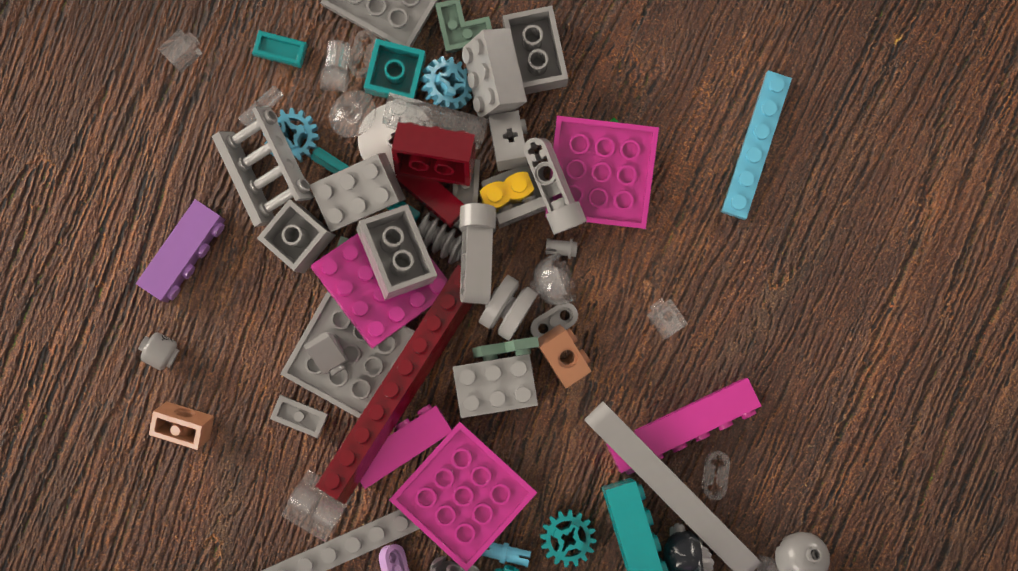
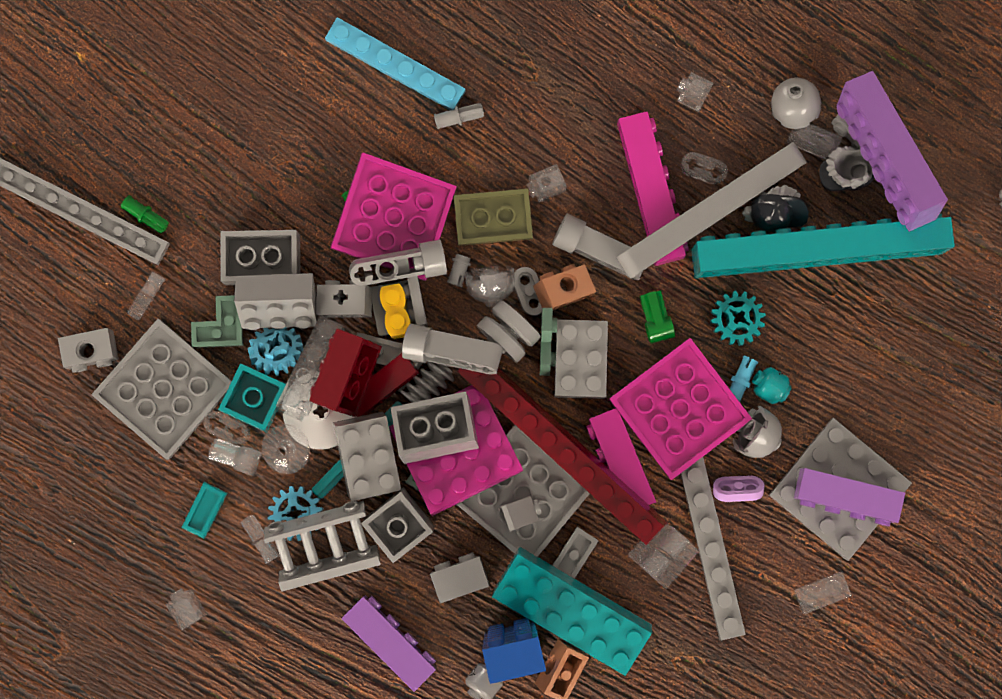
camera: 75 degrees left, 0 degrees up
(174, 368) = (512, 651): none -> blue brick
(241, 425) = (572, 611): none -> teal brick
(254, 307) = (460, 578): none -> light grey brick
(547, 457) = (658, 323): none -> green piece
(618, 358) = (577, 237): none -> light grey beam
(622, 271) = (493, 217): none -> olive plate
(717, 217) = (459, 115): none -> light grey axle
(792, 450) = (693, 91): none -> clear brick

